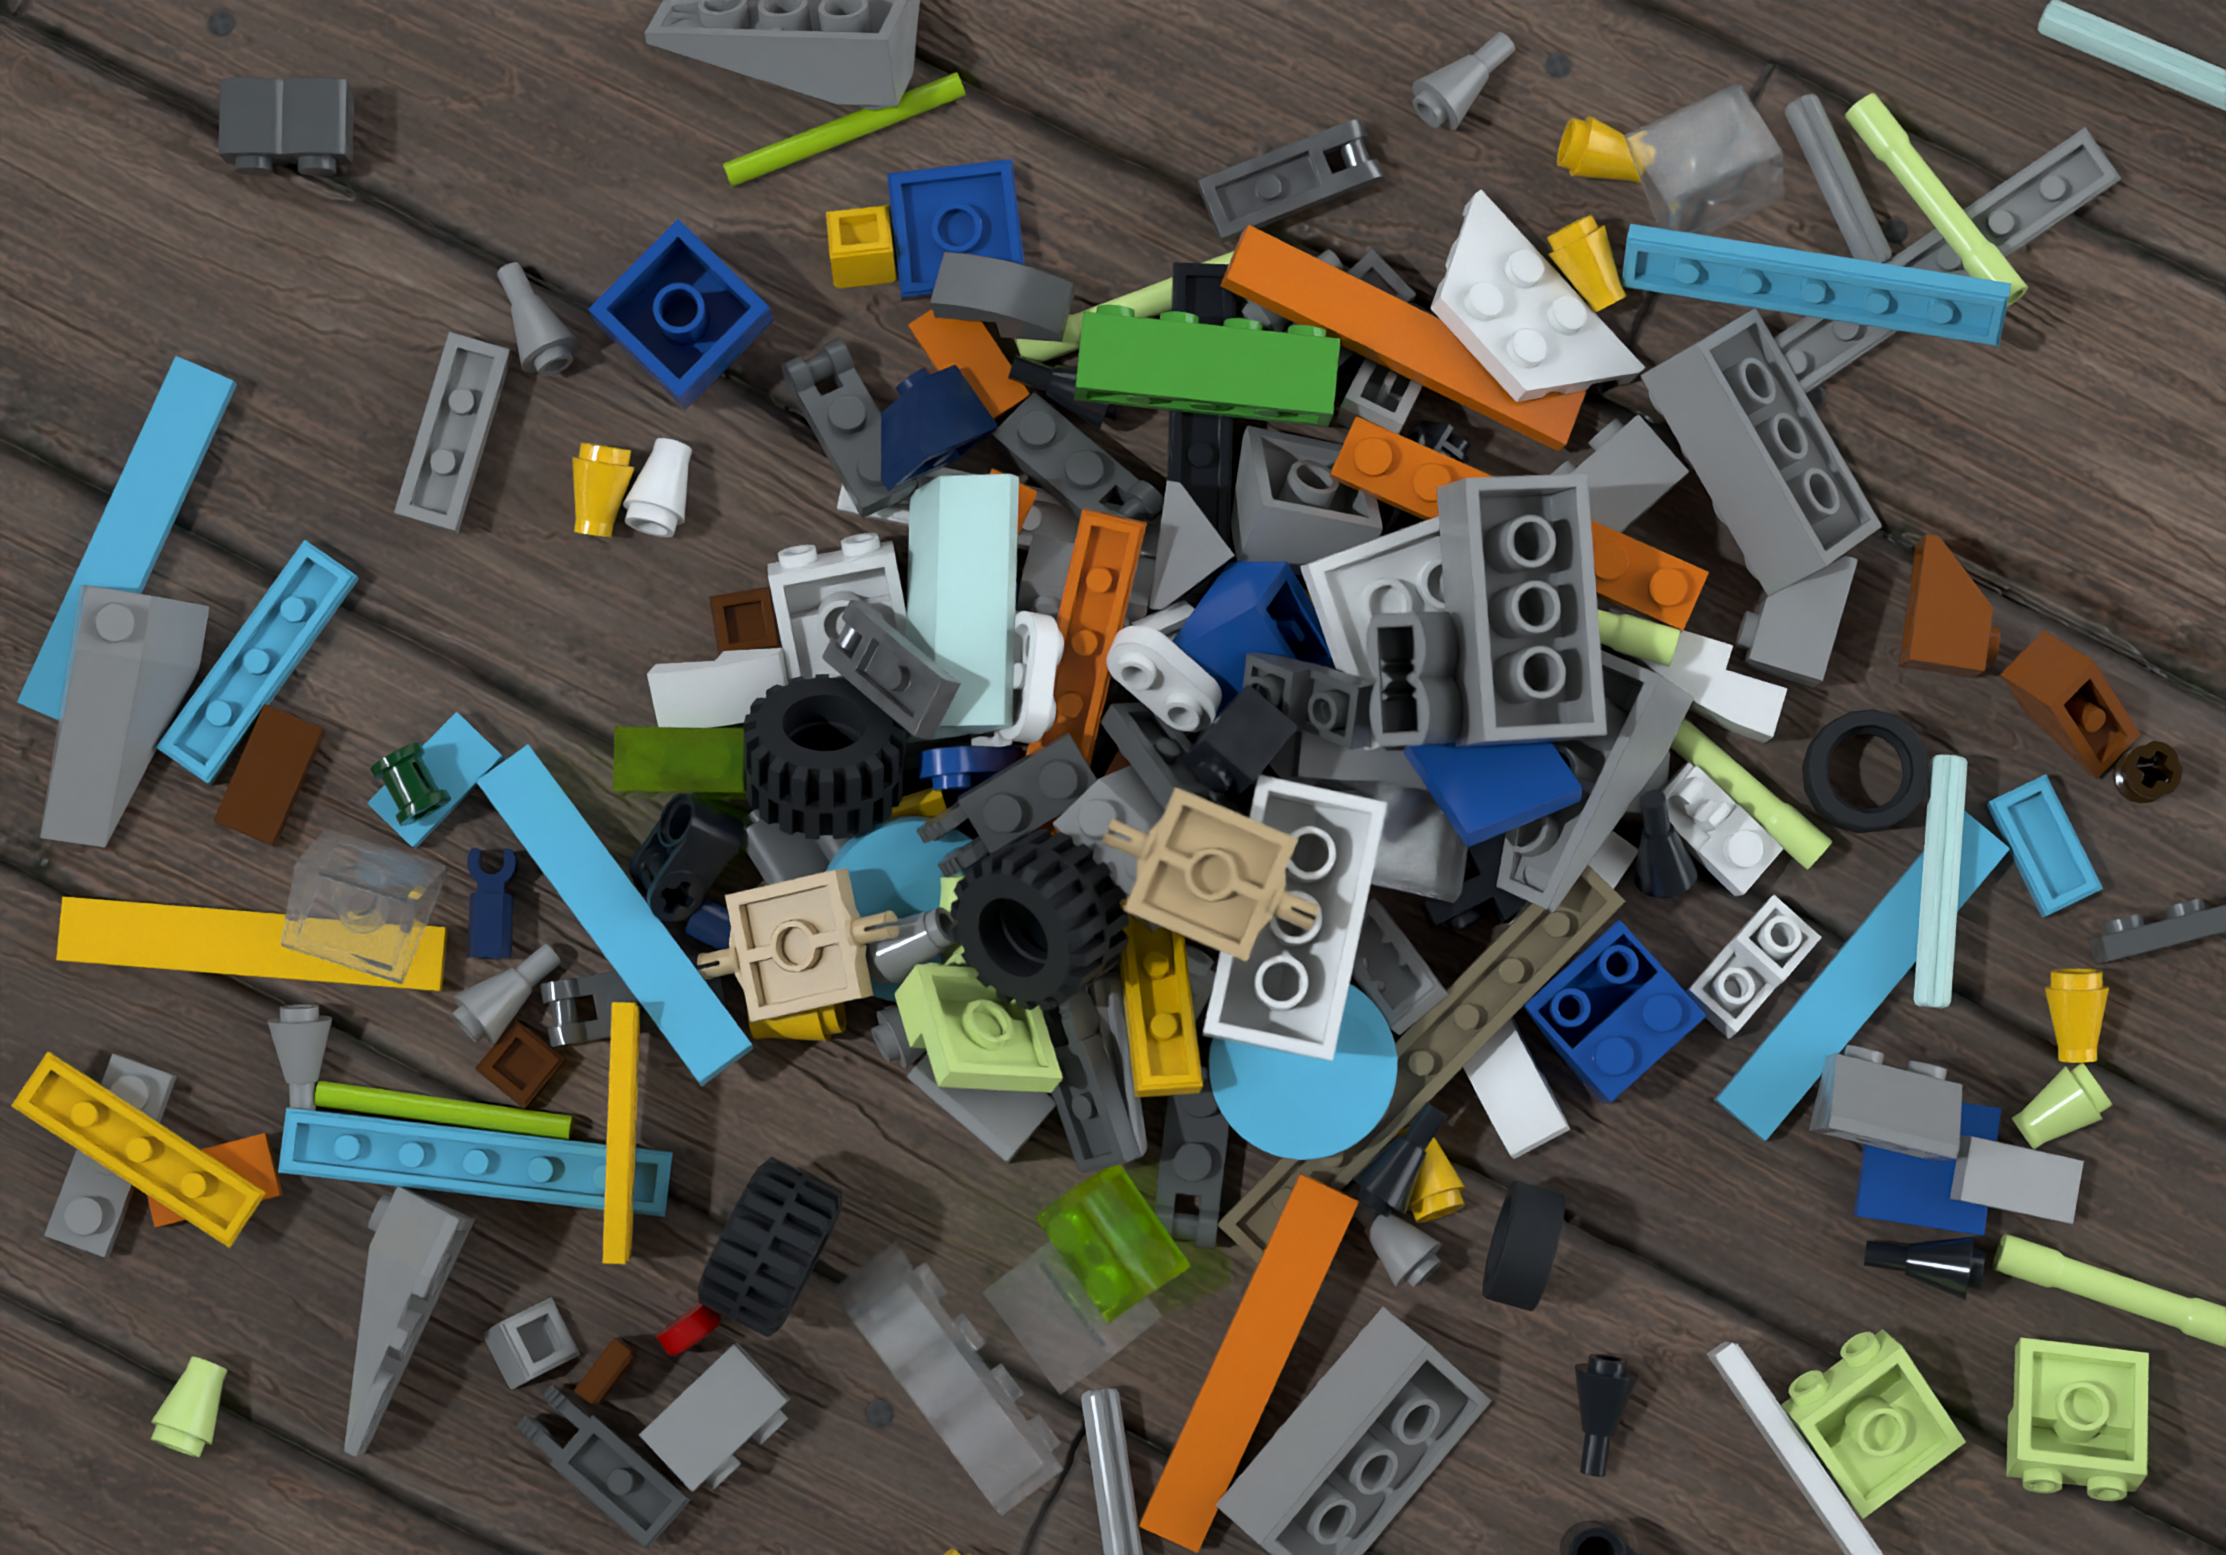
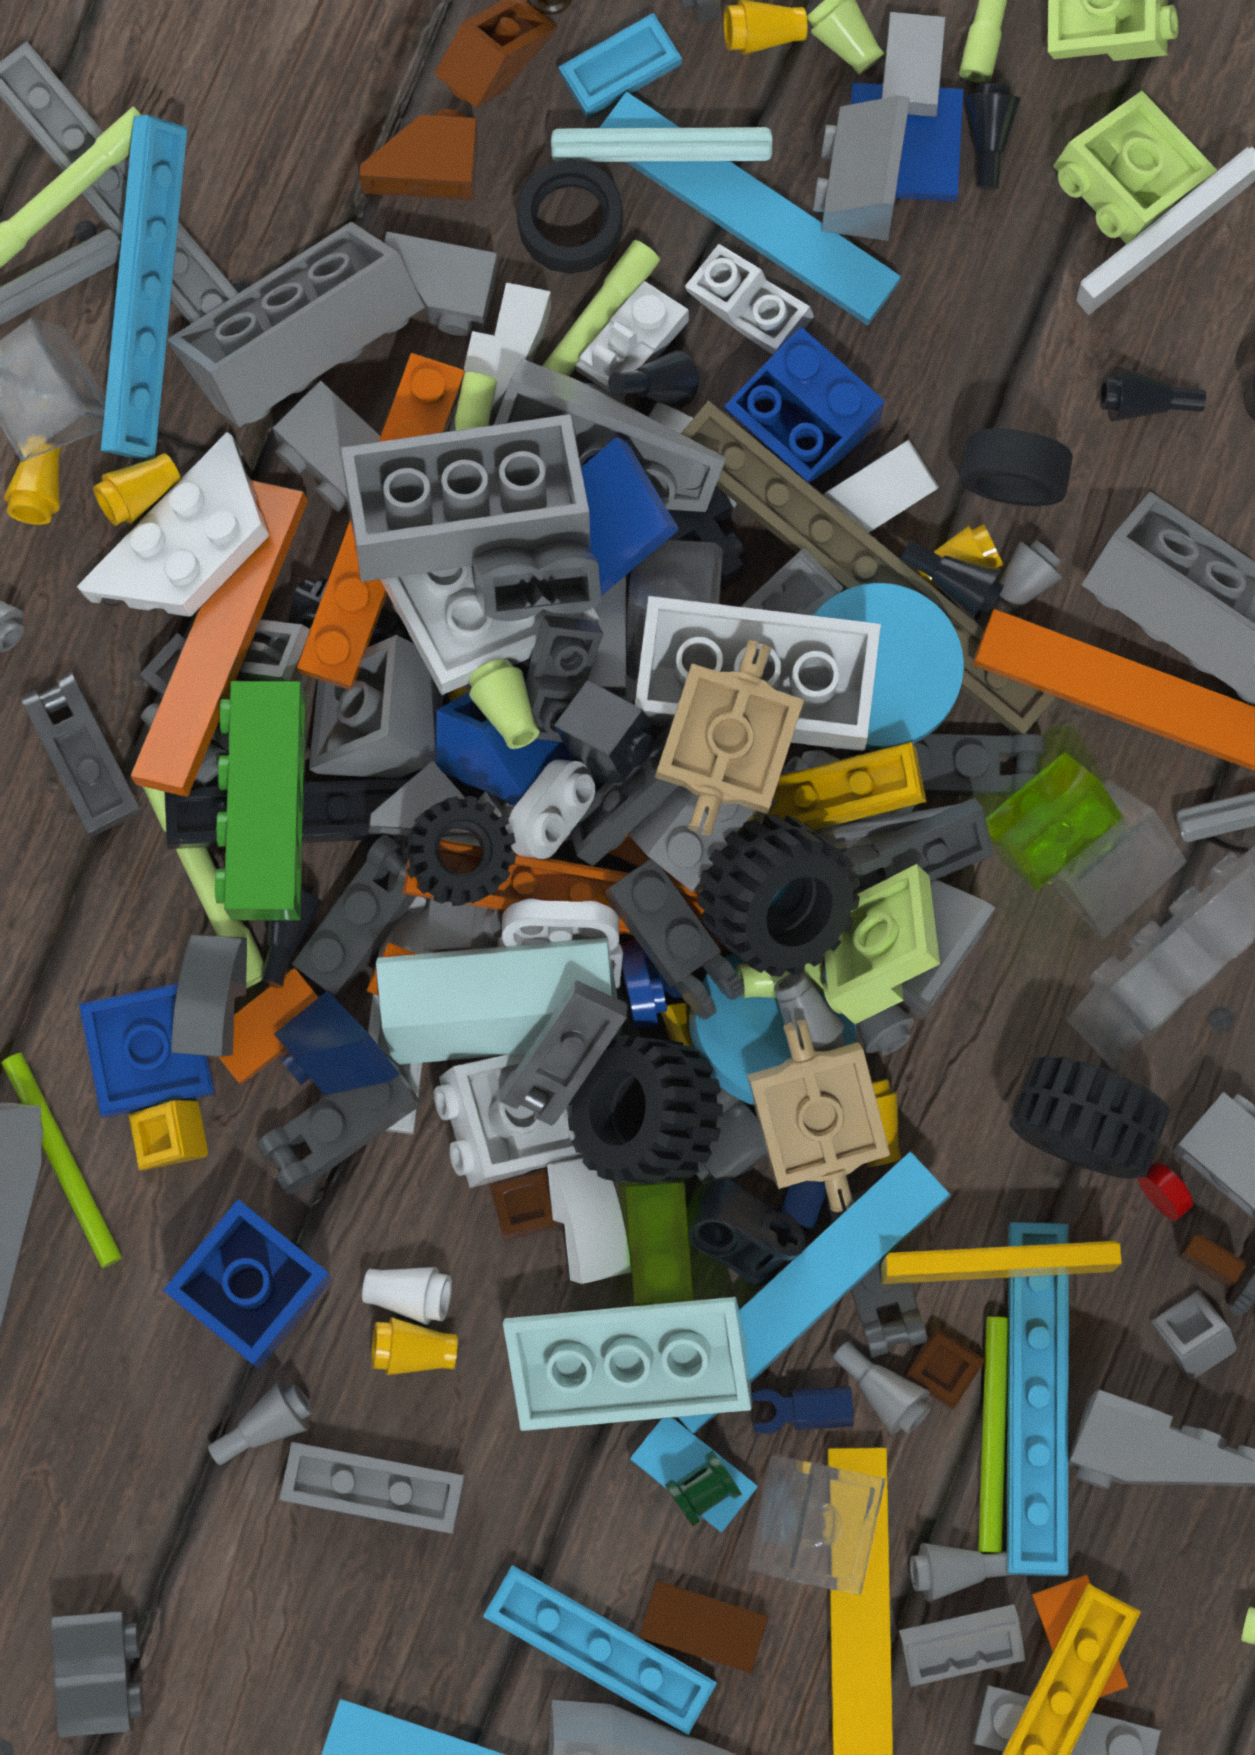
camera: 90 degrees left, 5 degrees down
(217, 1050) = (962, 1645): none -> light grey plate
(553, 718) = (629, 1363): none -> light aqua slope
(1078, 570) = (491, 835): none -> black tyre
(1285, 634) = (503, 698): none -> yellowish green cone

